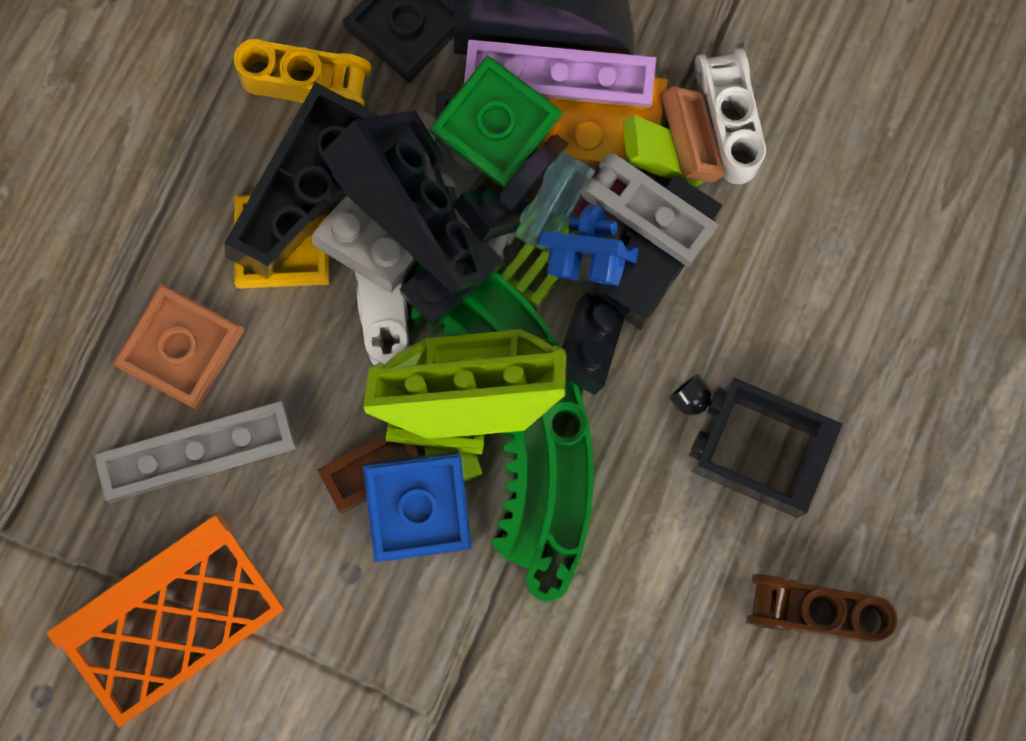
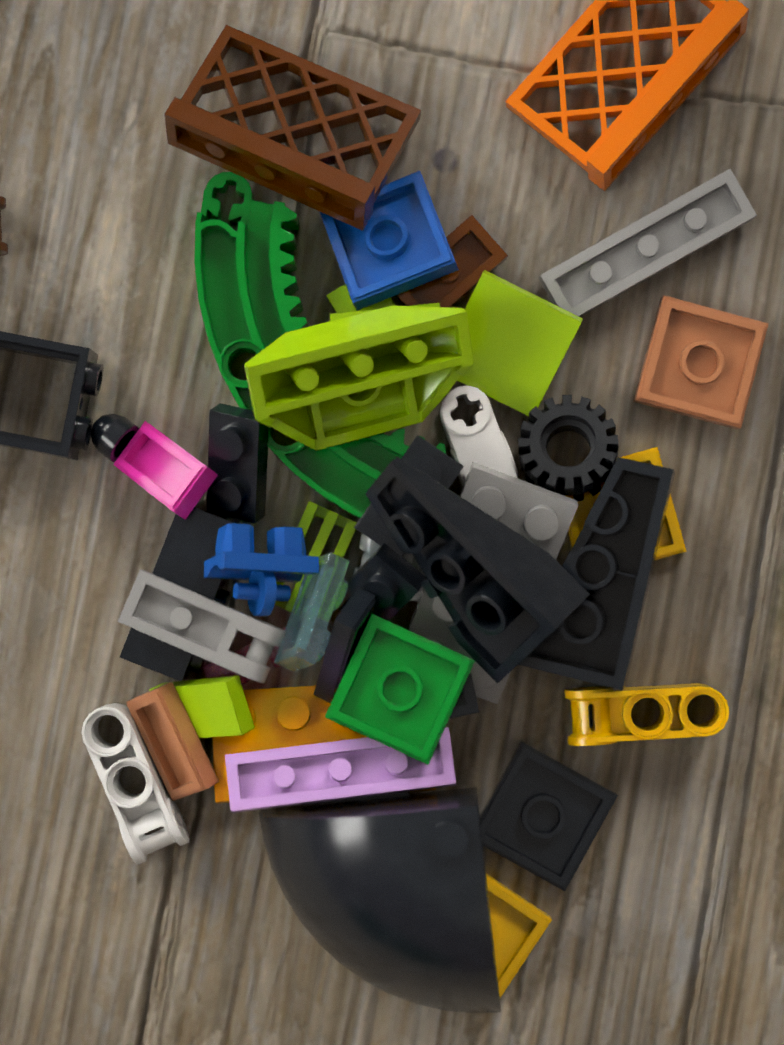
camera: 170 degrees right, 10 degrees up
(279, 294) = (568, 417): none -> black tyre
(328, 395) = (515, 342): none -> lime tile
(504, 596) = (262, 156): none -> reddish brown fence
(652, 351) = (165, 470): none -> dark pink tile

